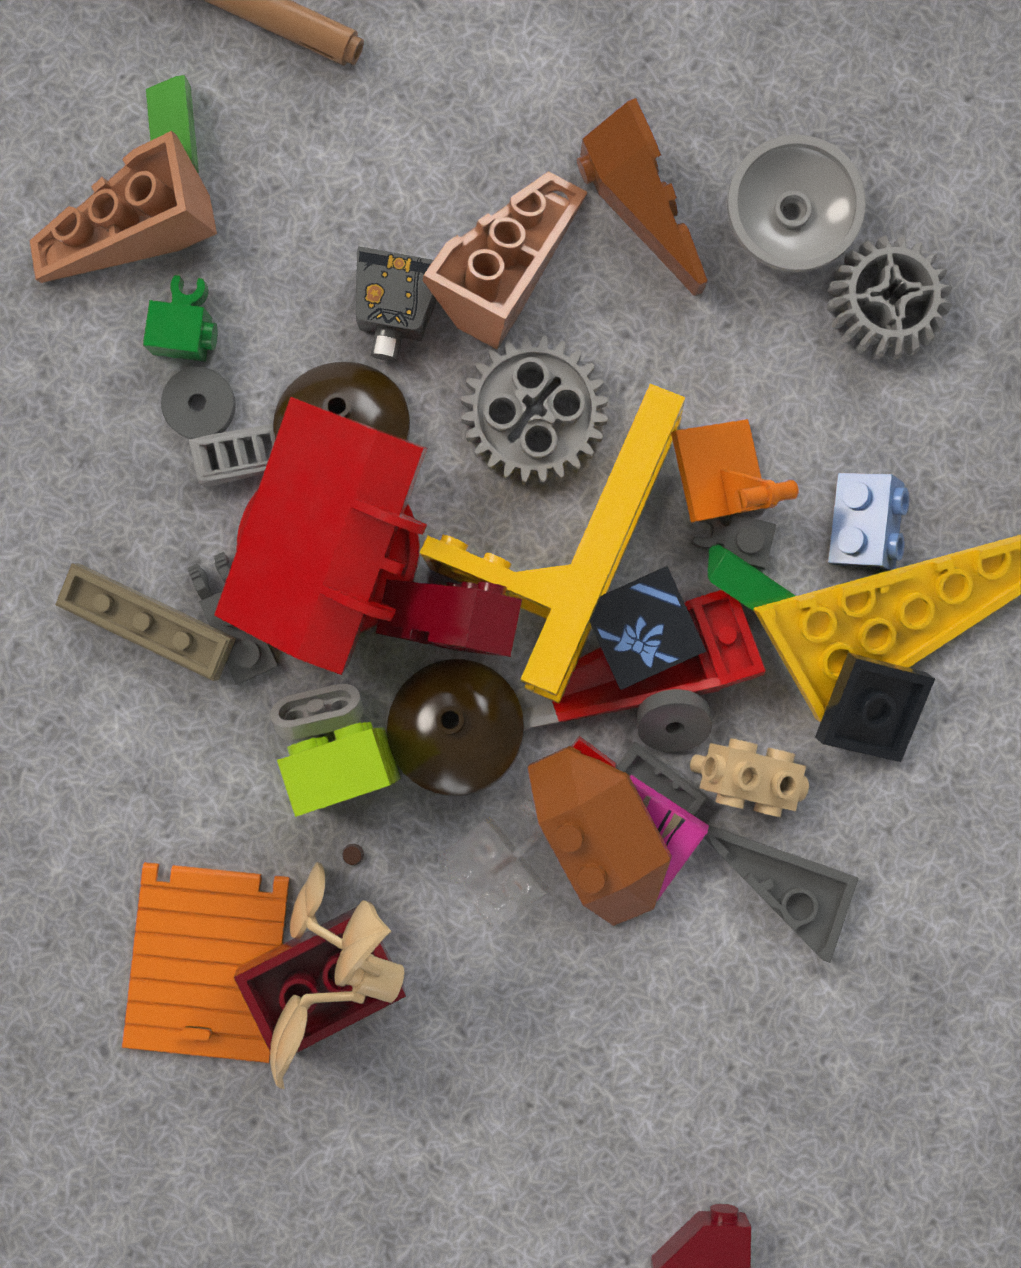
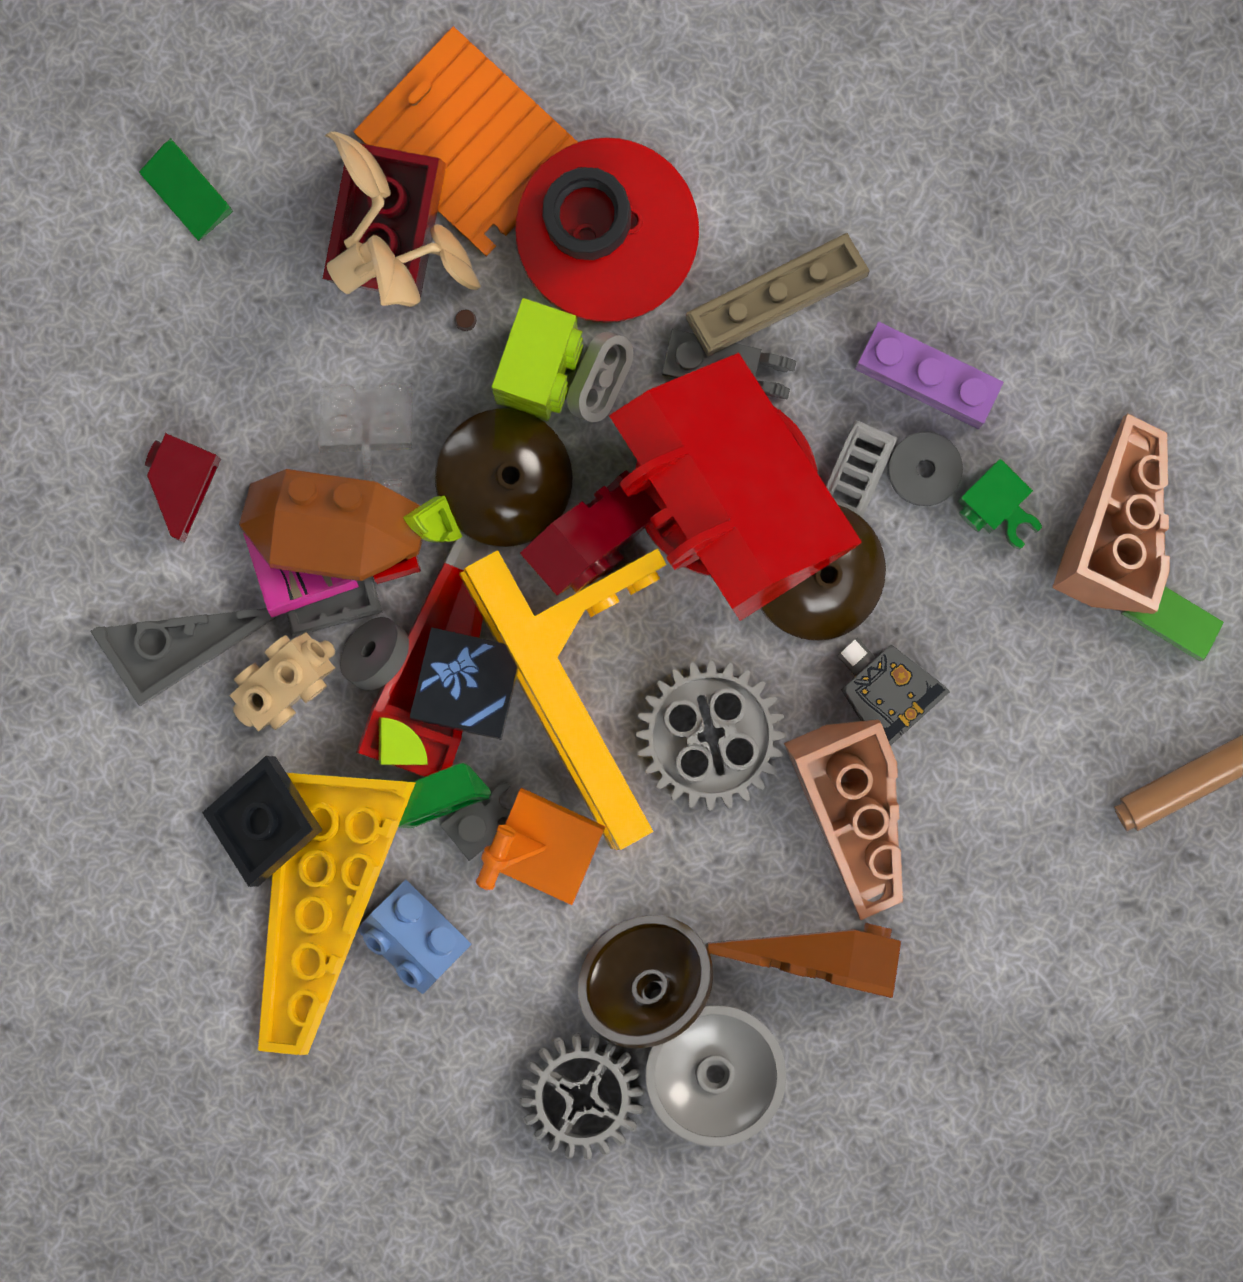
camera: 125 degrees right, 0 degrees up
(119, 452) = (929, 375): none -> medium lavender brick
(161, 842) = (575, 180): none -> black tyre
(194, 797) = (649, 261): none -> red plate
(418, 1162) = (185, 190): none -> green slope
(533, 754) = (434, 521): none -> lime tile
(657, 983) = (180, 481): none -> dark red slope
(734, 642) = (399, 744): none -> lime tile
(772, 340) = (629, 966): none -> dark brown dish

